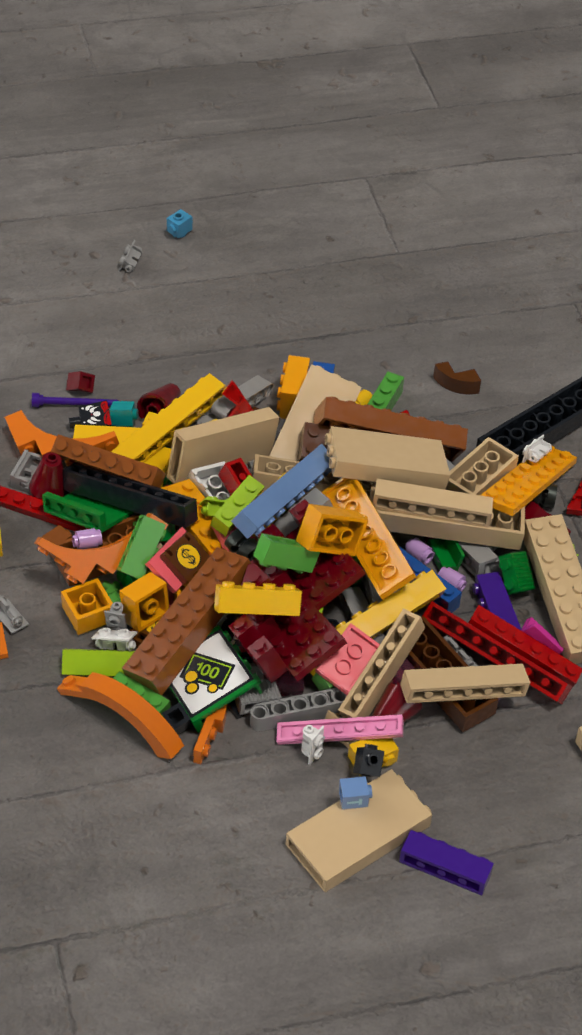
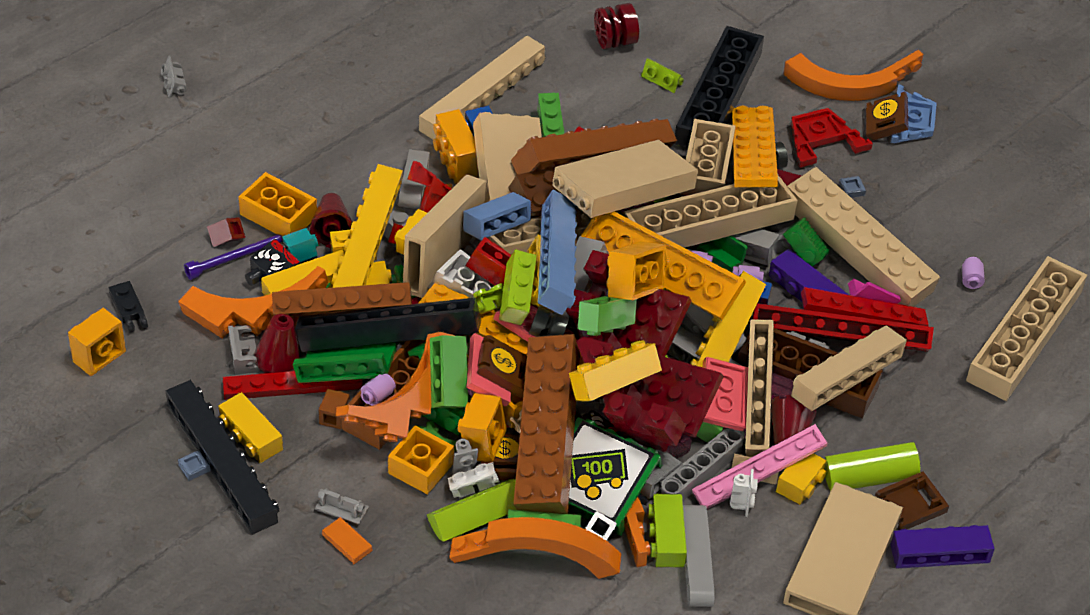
camera: 30 degrees left, 0 degrees up
(127, 376) = (277, 205): none -> light orange brick
(179, 224) = (202, 21): dark azure brick -> none
(234, 745) = (667, 530): none -> lime brick
(242, 775) = (698, 558): none -> light grey beam
(270, 447) = (496, 215): none -> medium blue brick
(354, 792) = (824, 520): medium blue brick -> none
(364, 348) = (487, 83): none -> tan brick
(368, 761) = (813, 484): black brick -> none
(433, 503) = (699, 204): tan brick -> none
(438, 773) = (872, 466): none -> lime brick
(449, 815) = (915, 508): none -> reddish brown container
(461, 382) = (611, 77): reddish brown brick -> none
(492, 344) = (616, 25): none -> dark red wheel
(505, 397) = (661, 75): none -> lime hinge
(536, 450) = (740, 114): white hinge -> none

